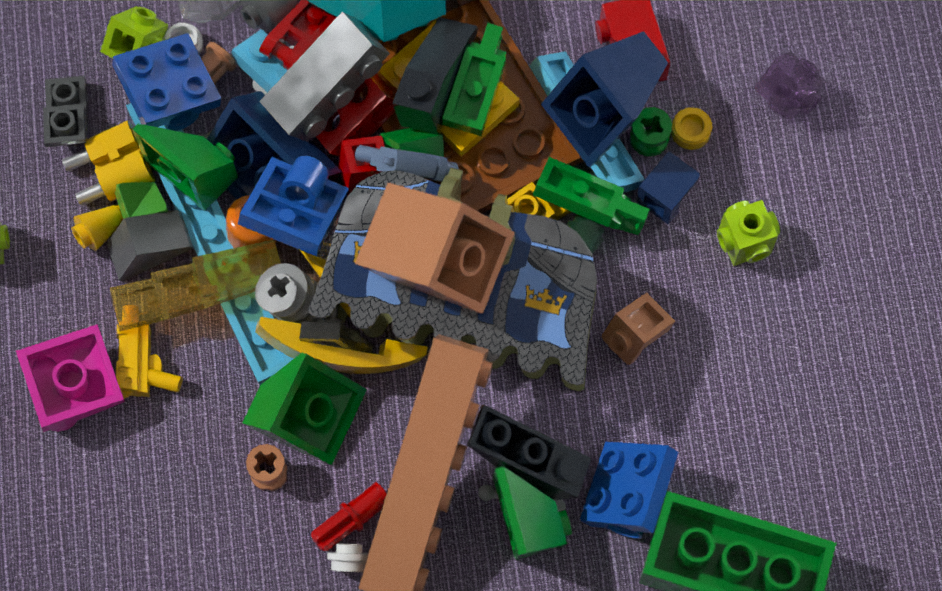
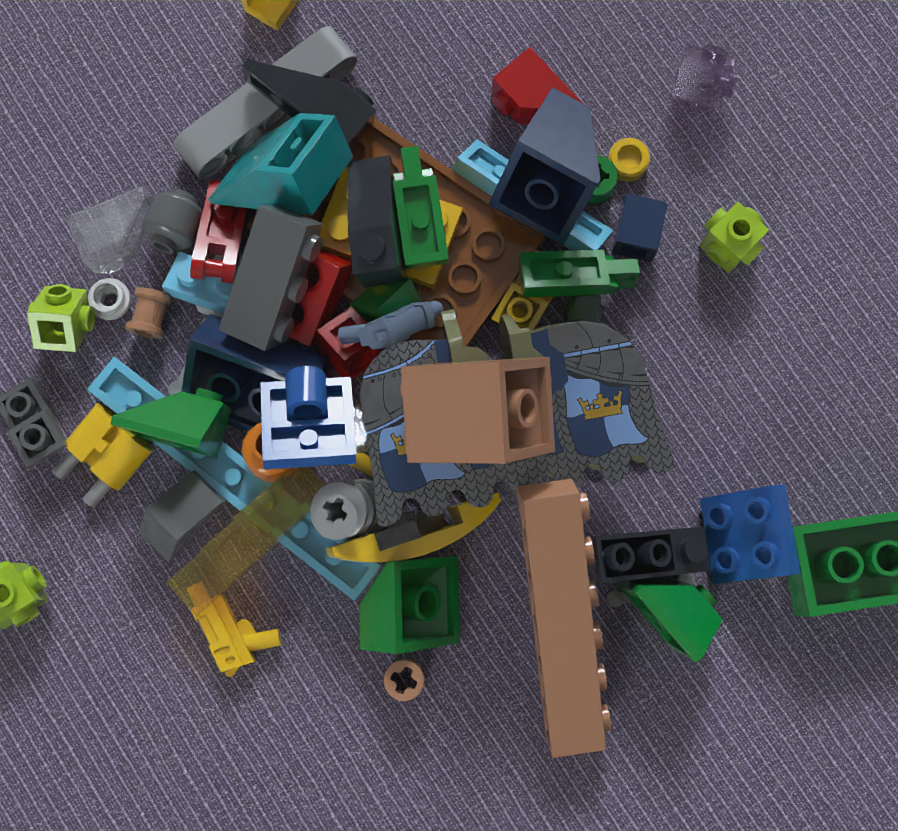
camera: 25 degrees left, 10 degrees up
(70, 378) = (172, 687): dark pink slope -> none
(96, 226) = (122, 519): yellow cone -> none
(139, 199) = (150, 479): bright green slope -> none
(167, 83) = (116, 352): blue plate -> none
(348, 558) = (524, 727): white plate -> none
(349, 518) = (505, 687): red axle -> none
(636, 328) = (677, 376): nougat bracket -> none

